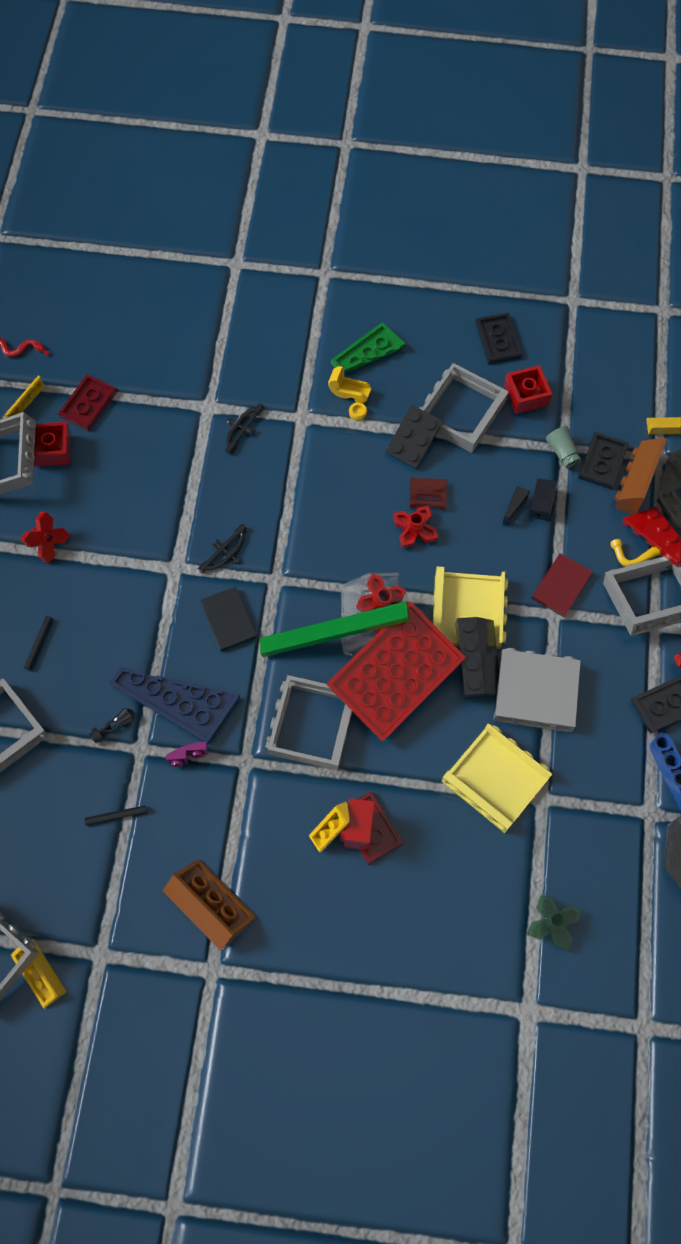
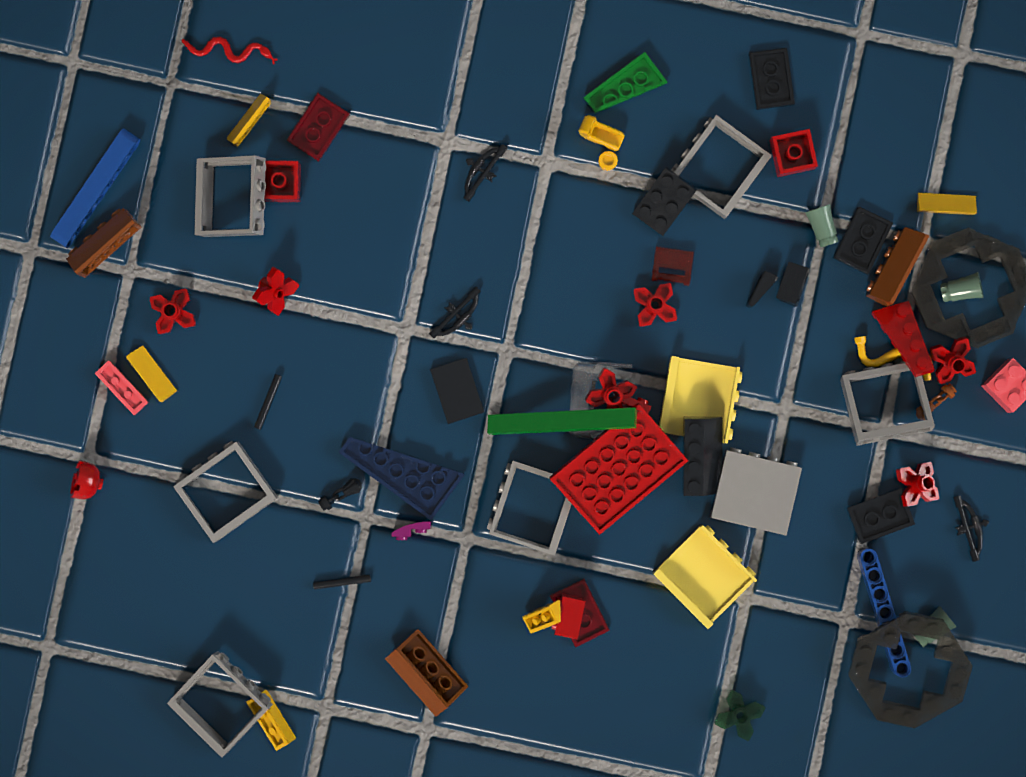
camera: 10 degrees right, 20 degrees up
(561, 585) = (797, 380): dark red tile -> none

